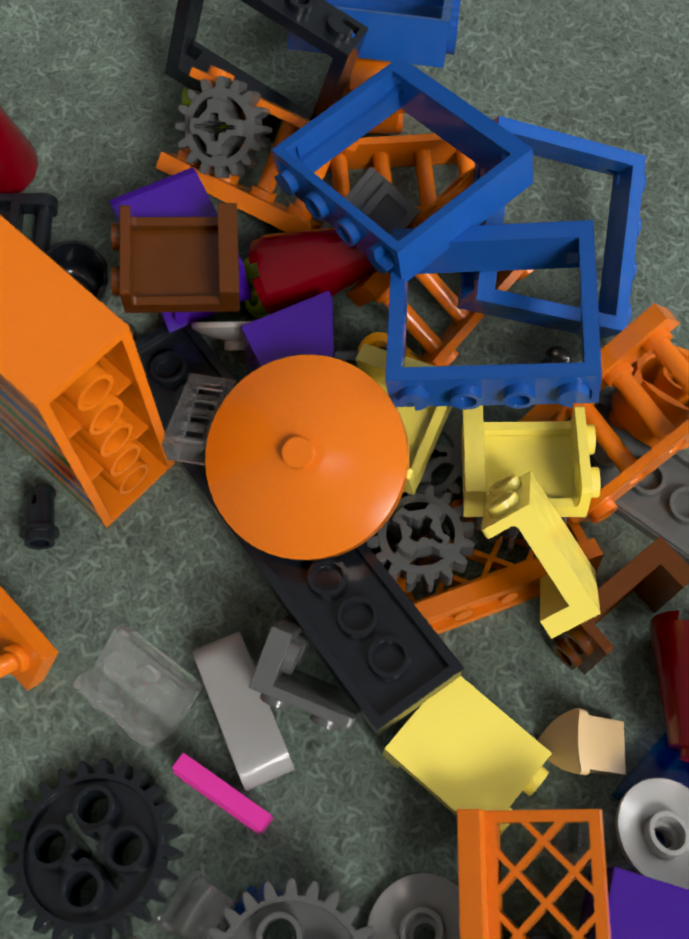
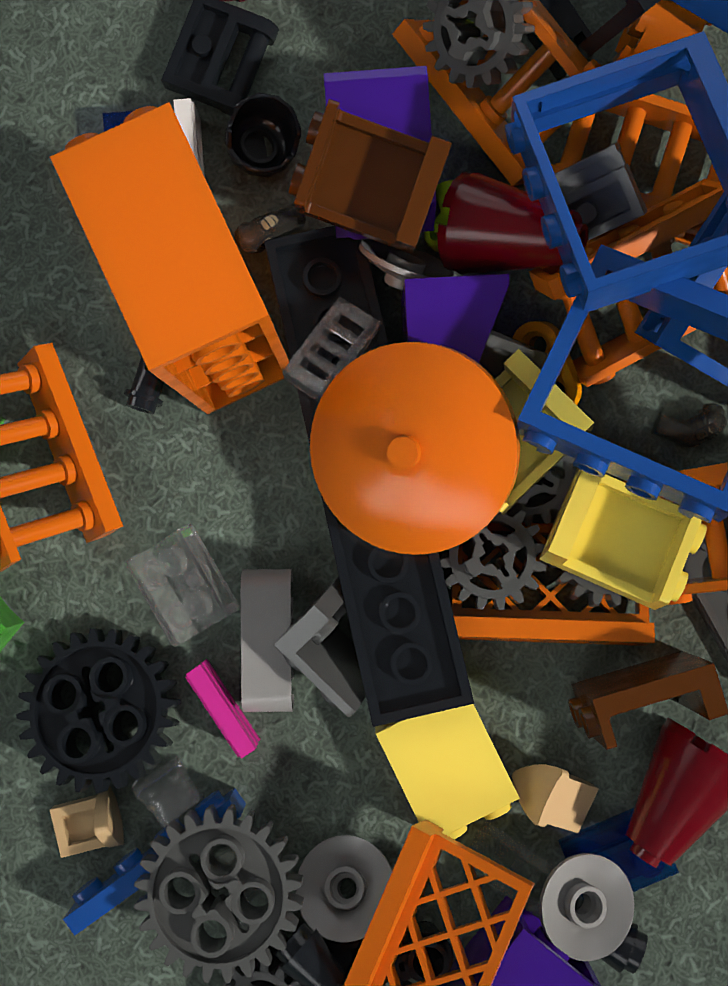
camera: 20 degrees right, 20 degrees up
(570, 587) = (595, 602): light yellow panel -> none

